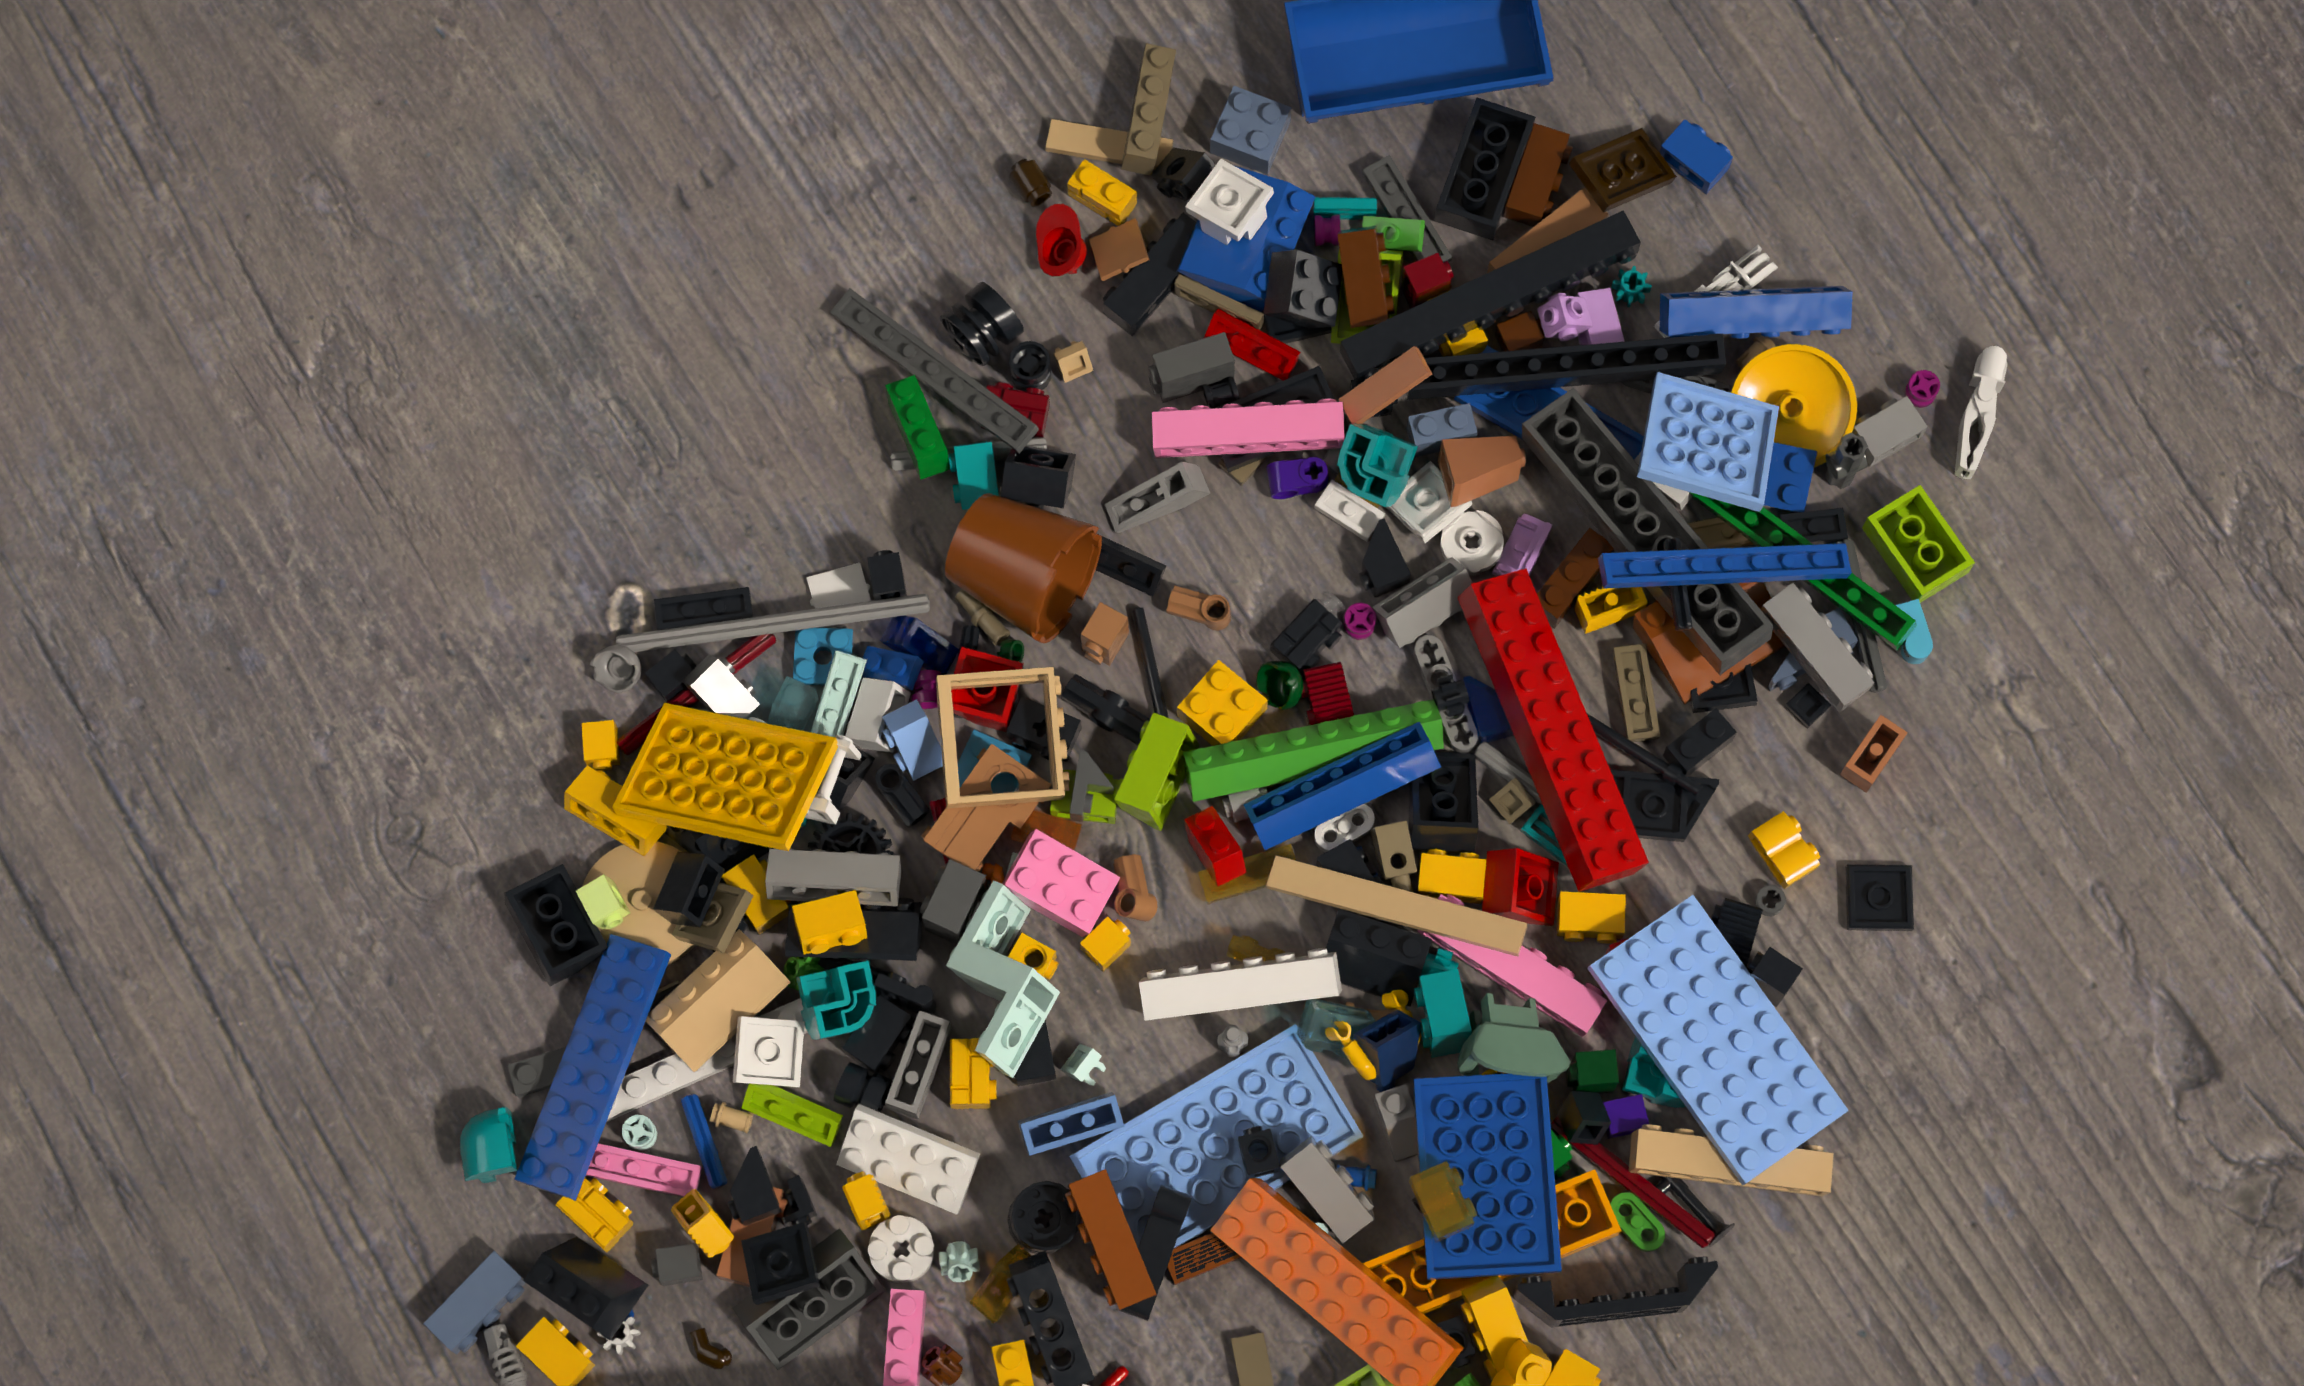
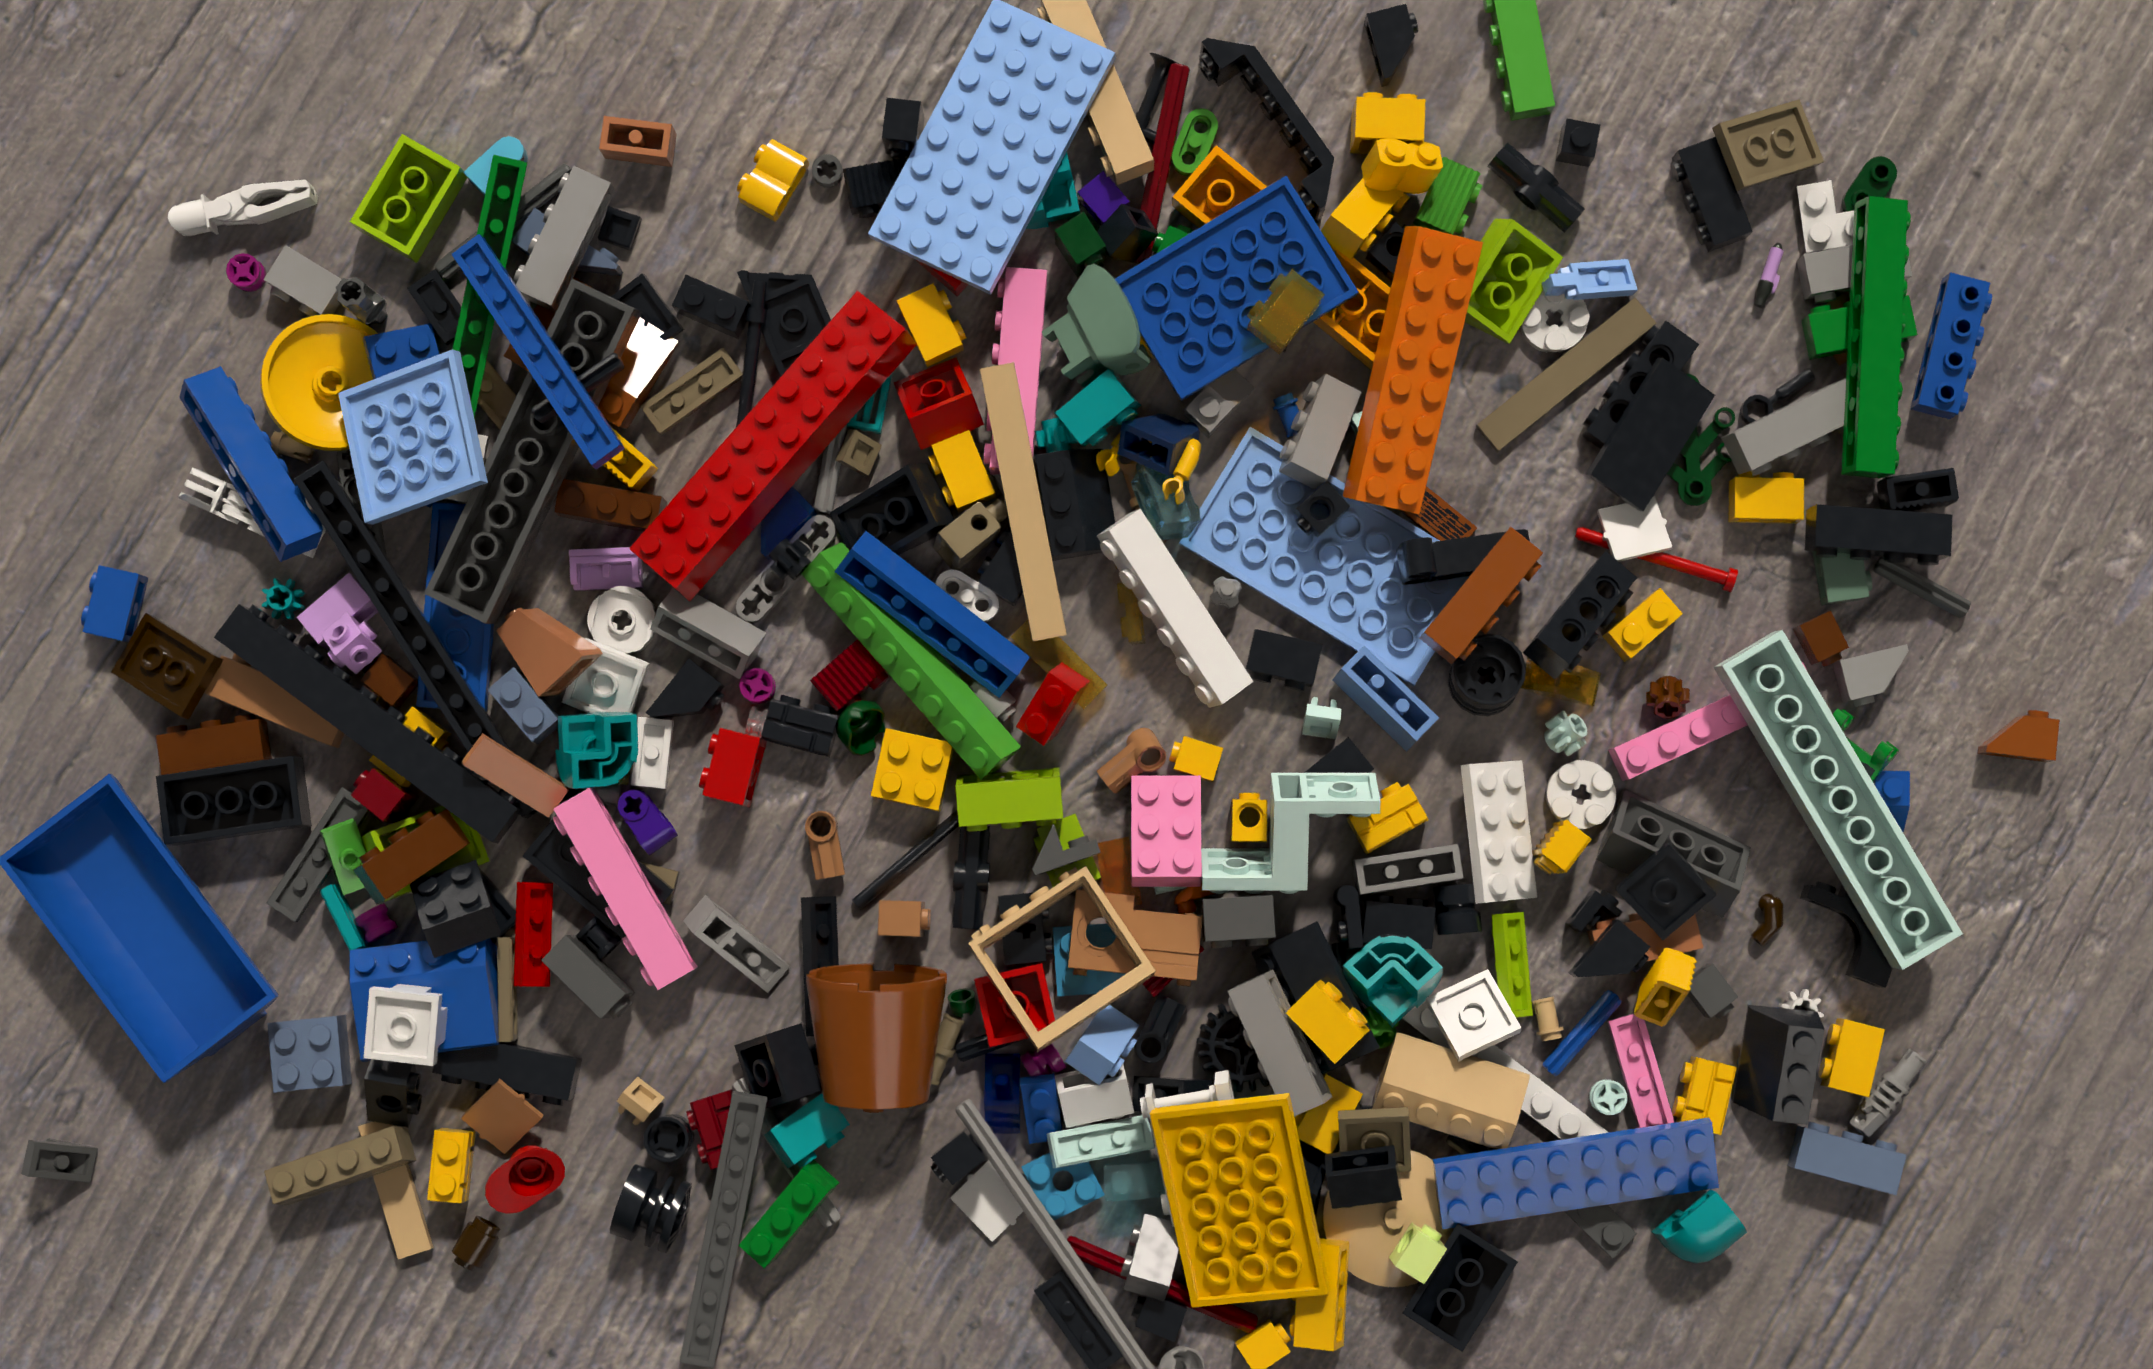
camera: 115 degrees left, 10 degrees up
(1150, 1058) = (1283, 659): none -> black brick
(1300, 563) = (733, 767): none -> red brick
(1879, 897) = (771, 74): black tile -> none

